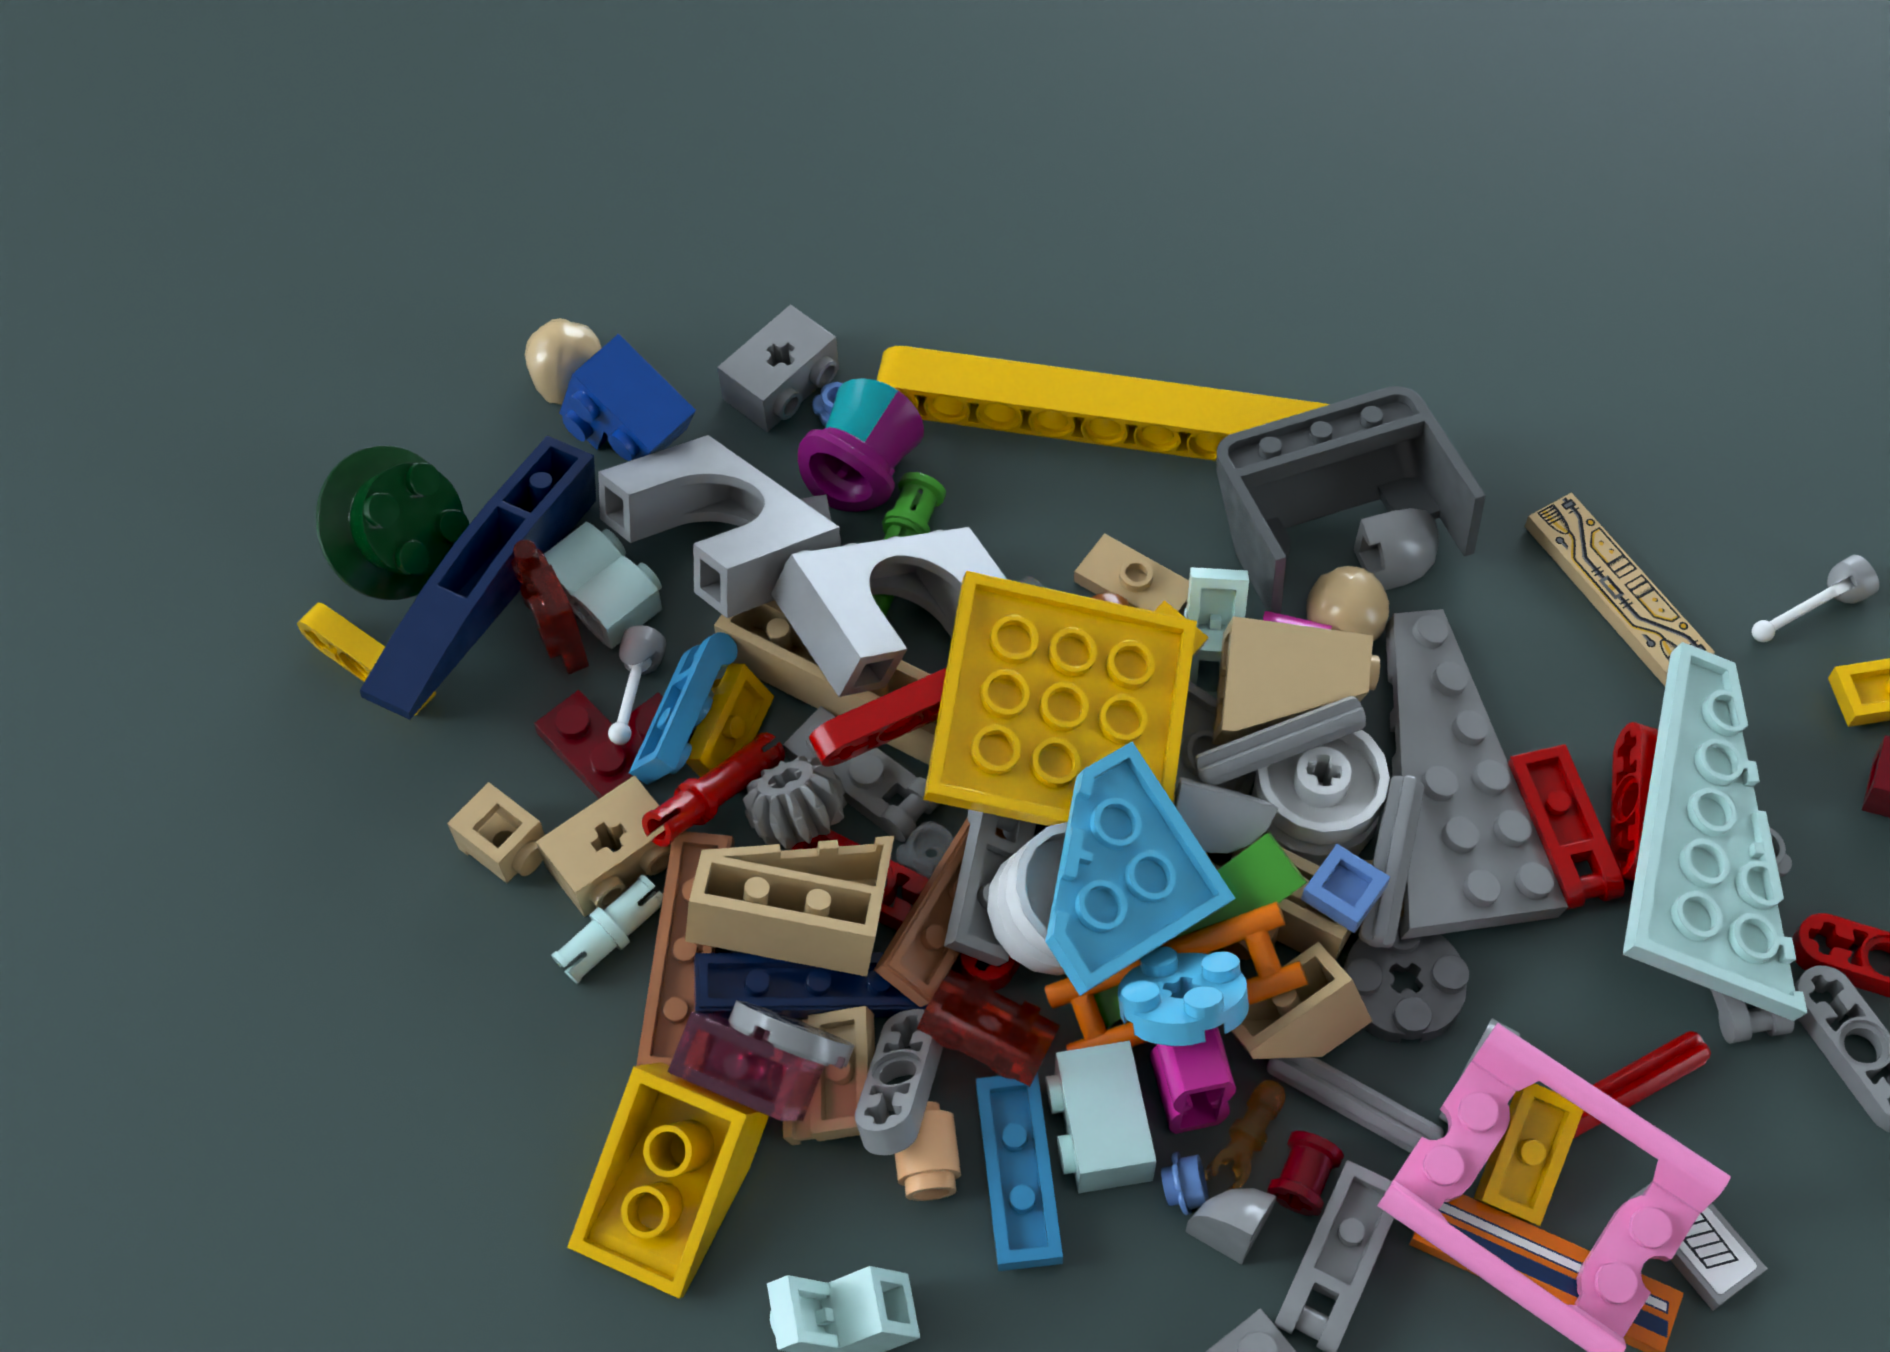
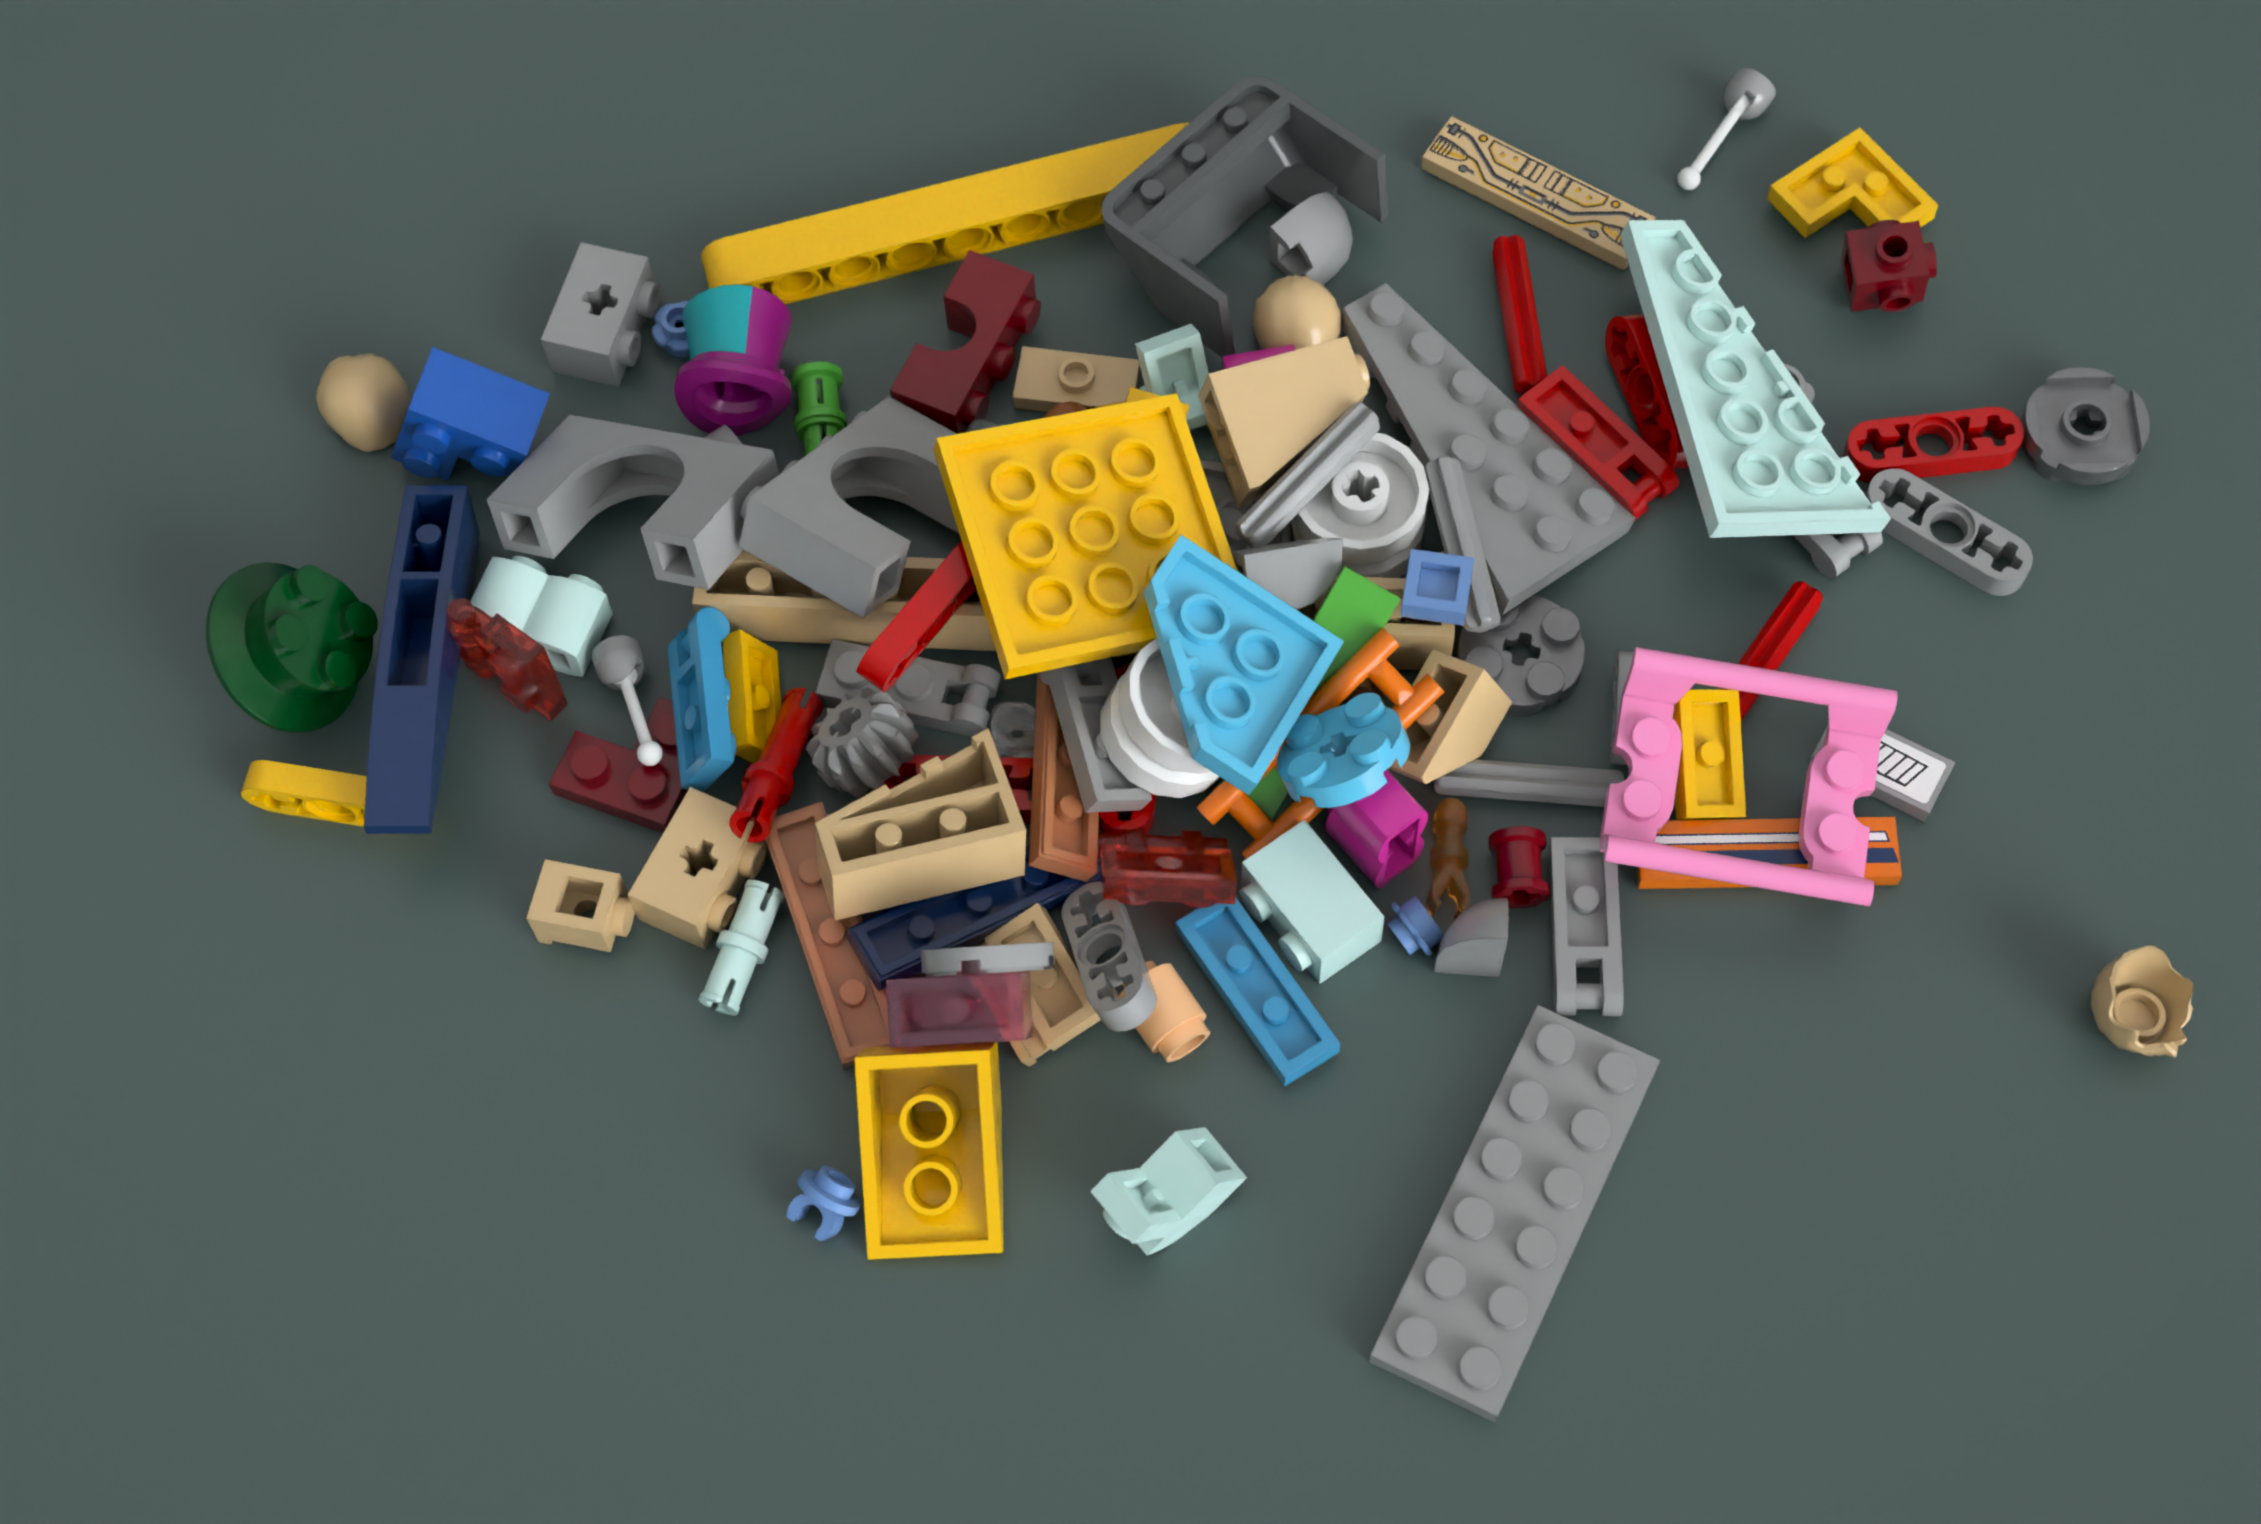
camera: 25 degrees left, 5 degrees up
(565, 1177) = (831, 1193): none -> medium blue plate
(1095, 493) = (992, 308): none -> dark red arch
(1550, 683) = (1519, 312): none -> red axle

